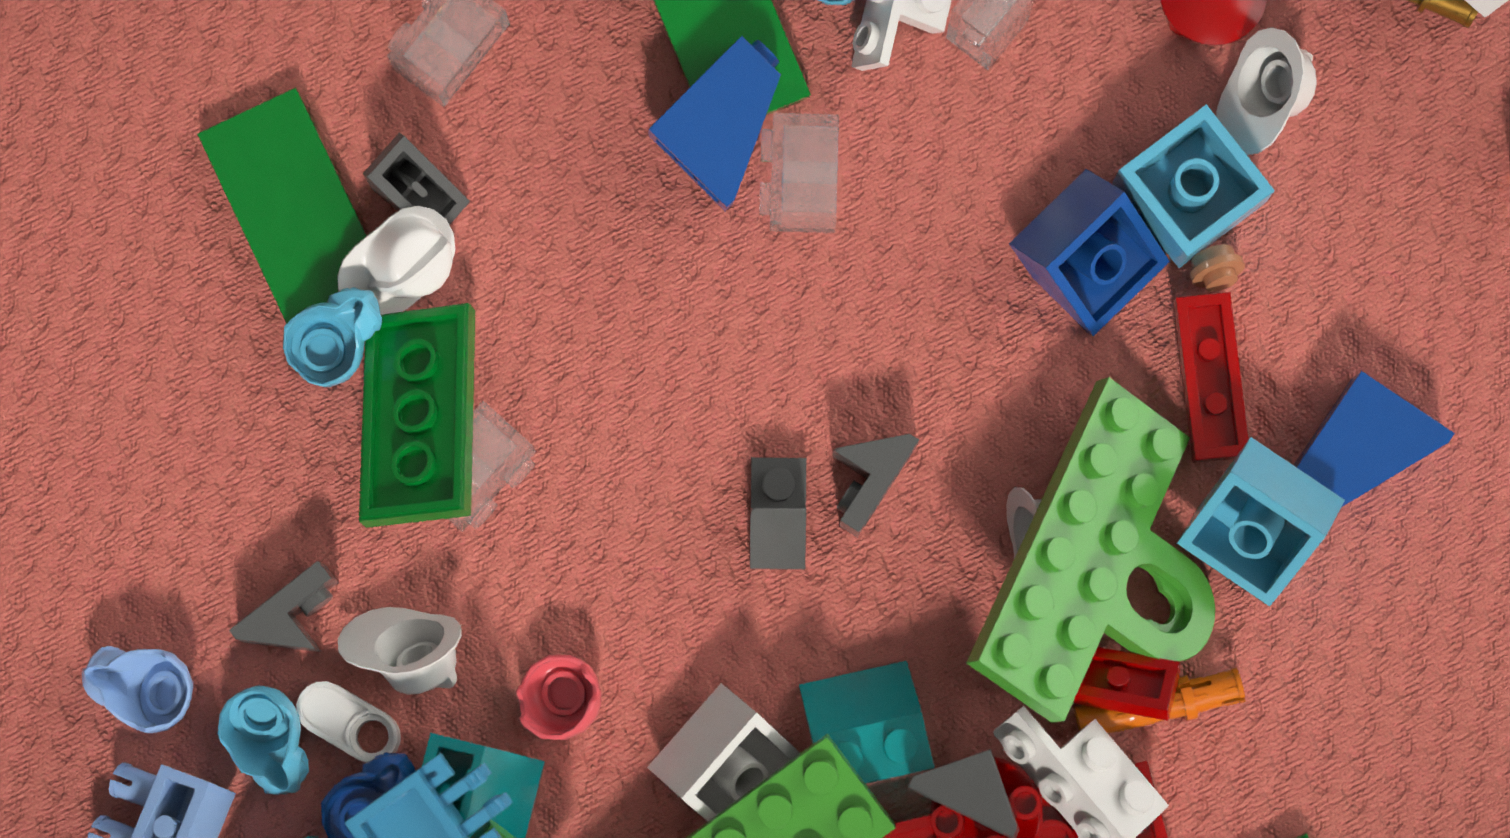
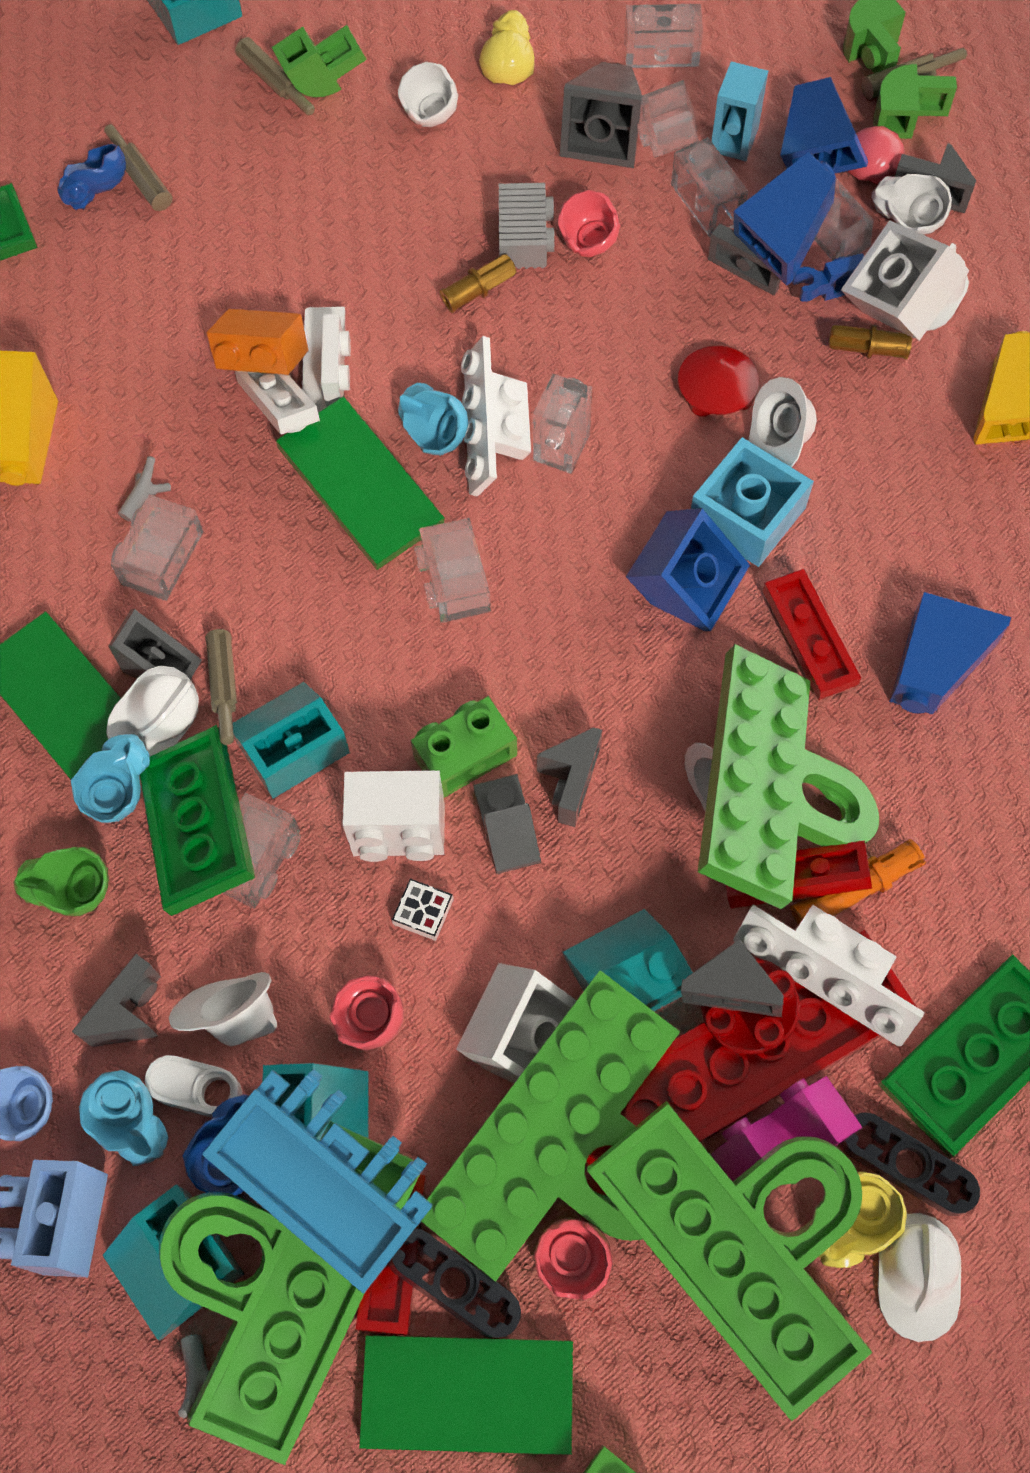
camera: 15 degrees left, 15 degrees down
(252, 446) = (64, 881): none -> bright green hair
(487, 243) = (222, 681): none -> dark tan axle
(548, 337) = (290, 739): none -> teal slope
(648, 478) = (394, 814): none -> white brick
(653, 590) = (422, 909): none -> tile
(719, 119) = (378, 545): blue slope -> none
(753, 406) = (465, 744): none -> bright green brick
(1216, 268) = (786, 556): nougat plate -> none
(1261, 522) = (890, 718): medium azure brick -> none

